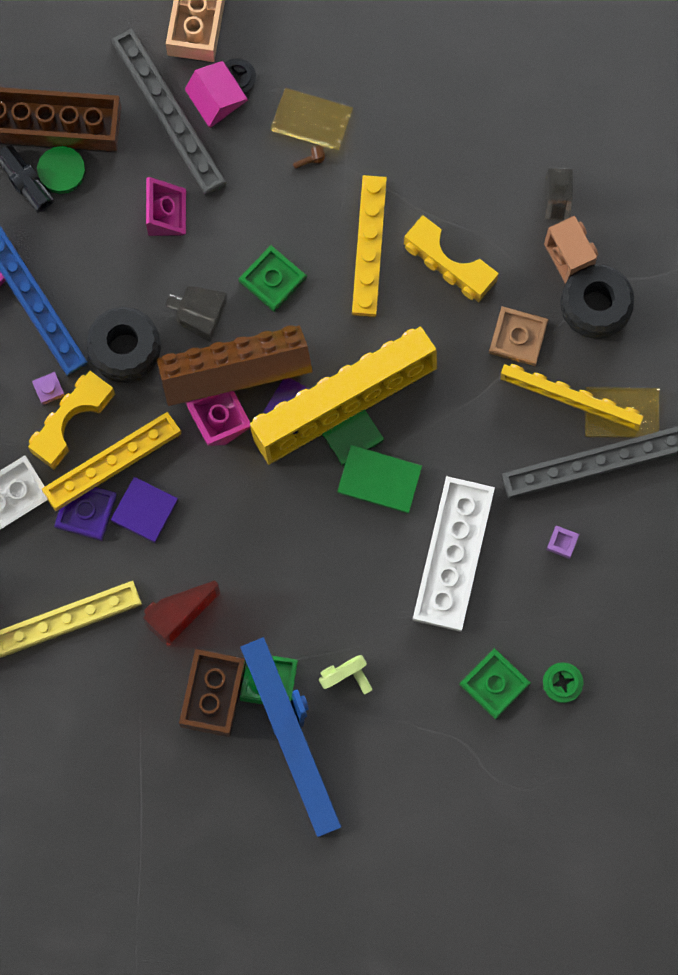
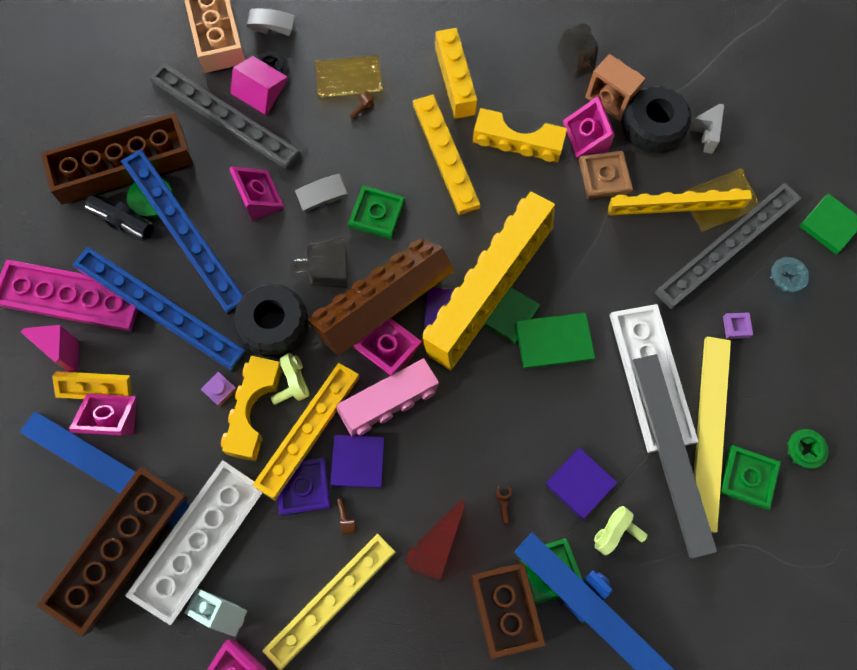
camera: 25 degrees left, 5 degrees down
(78, 221) = (183, 230): none -> blue tile
(110, 562) = (347, 525): none -> reddish brown hand
(120, 417) = (297, 387): none -> yellowish green piece
(197, 463) = (387, 397): none -> bright pink brick
(227, 235) = (321, 191): none -> light grey slope
(255, 22) = (265, 19): none -> light grey slope
(258, 605) = (504, 503): none -> reddish brown hand
(336, 619) = (580, 483): none -> dark purple tile
(419, 164) = (455, 73): none -> yellow brick
(430, 629) = (674, 457): none -> dark grey tile
(481, 628) = (712, 425): none -> light yellow tile
(522, 283) = (589, 129): none -> dark pink slope
(652, 327) = (710, 125): none -> light grey slope
(653, 510) = (793, 267): none -> clear light blue gear

